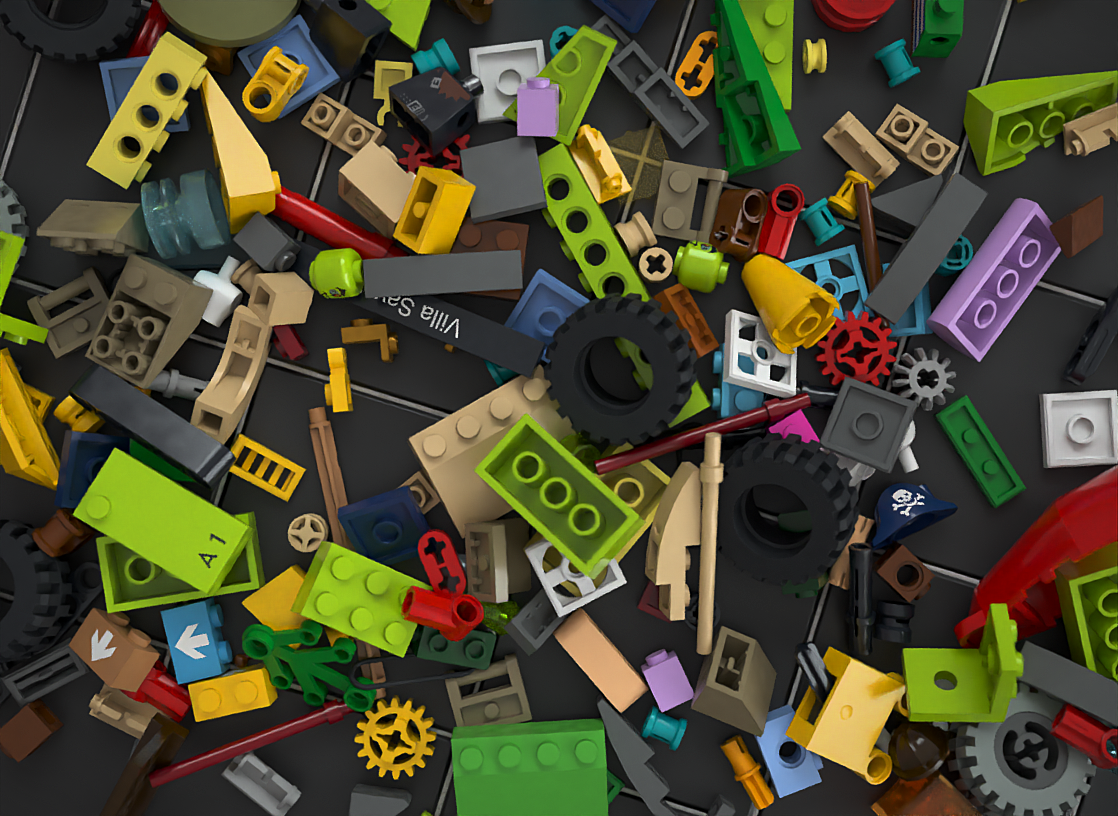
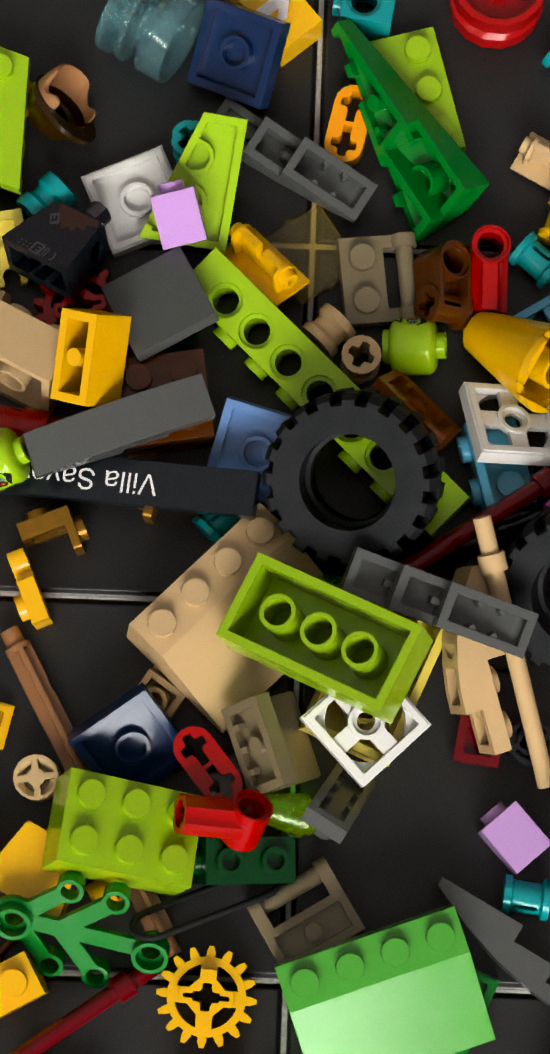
camera: 15 degrees left, 10 degrees down
(600, 660) = (427, 835): light nougat beam -> none
(658, 493) = (439, 602): none -> dark grey slope
(814, 56) = (475, 81): light yellow bush -> none

